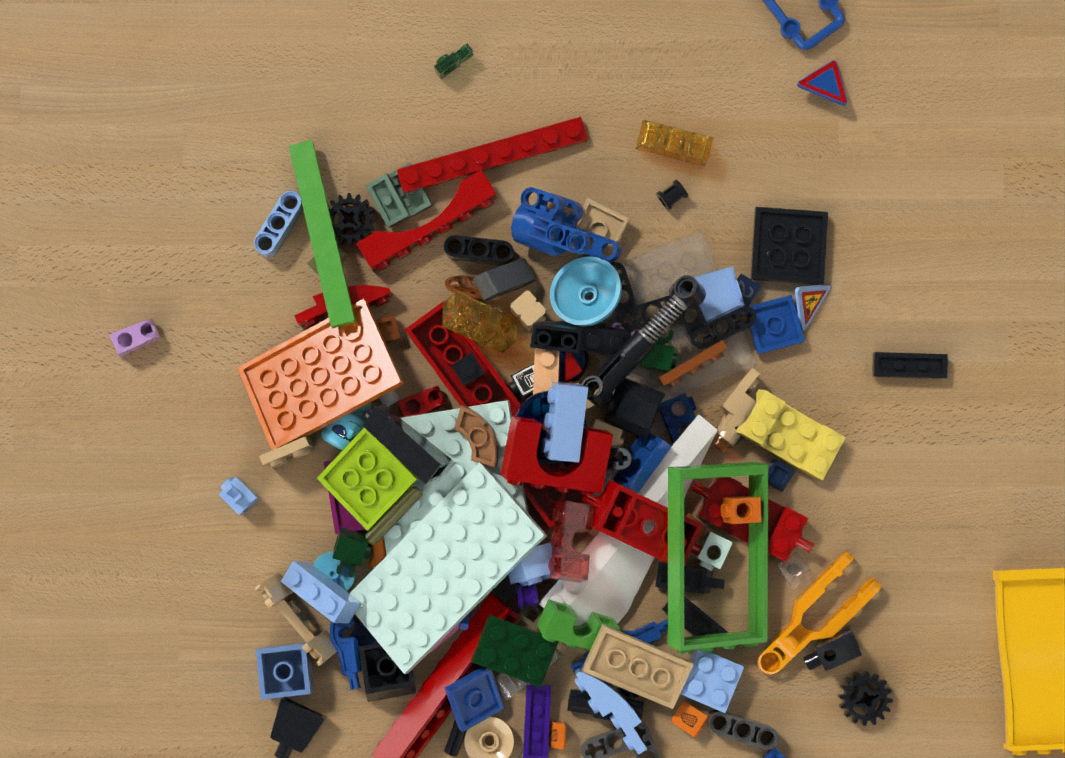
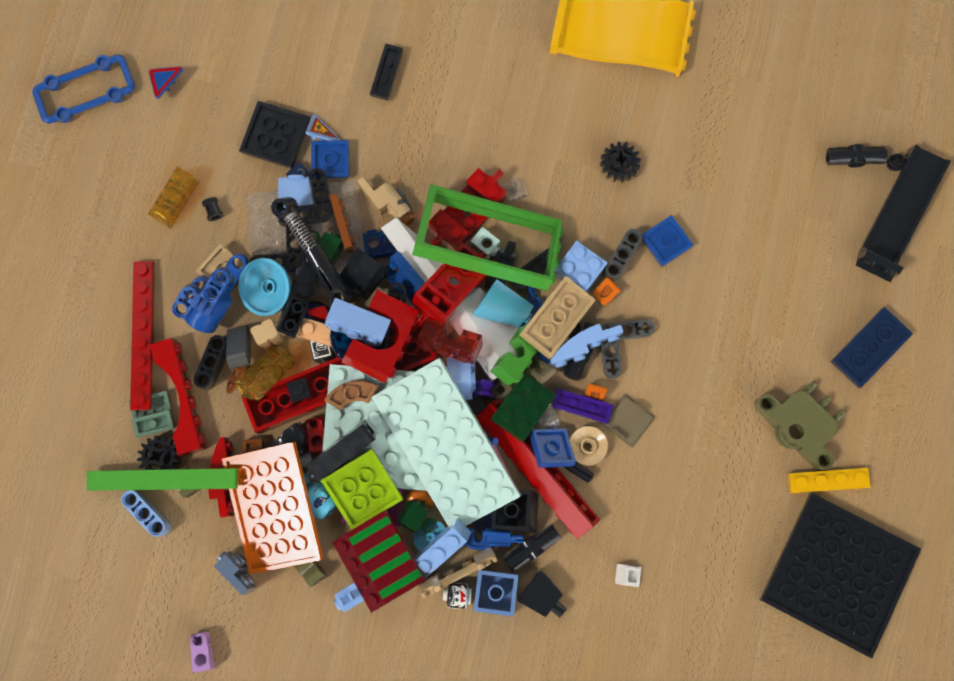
camera: 70 degrees left, 5 degrees down
(237, 346) = (232, 568): none -> sand blue plate
(255, 441) = (311, 572): none -> olive leg
(271, 625) = (457, 595): none -> head
(279, 456) = (324, 541): tan plate -> none
(287, 520) = (379, 561): none -> dark red slope
(348, 702) = (532, 547): none -> black piece
(394, 515) = (396, 475): olive axle -> none
(412, 377) = (293, 433): none -> black cylinder
(447, 64) = (62, 351): clear green plate -> none
(566, 660) = (540, 370): none -> dark tan plate
(637, 594) = (504, 306): none -> medium azure slope
(751, 509) = (460, 205): orange brick -> none
(779, 475) = (443, 181): dark blue tile -> none
(791, 435) = (414, 166): light yellow piece -> none
(795, 636) = (564, 201): light orange piece -> none
(842, 643) = (577, 166): black torso -> none

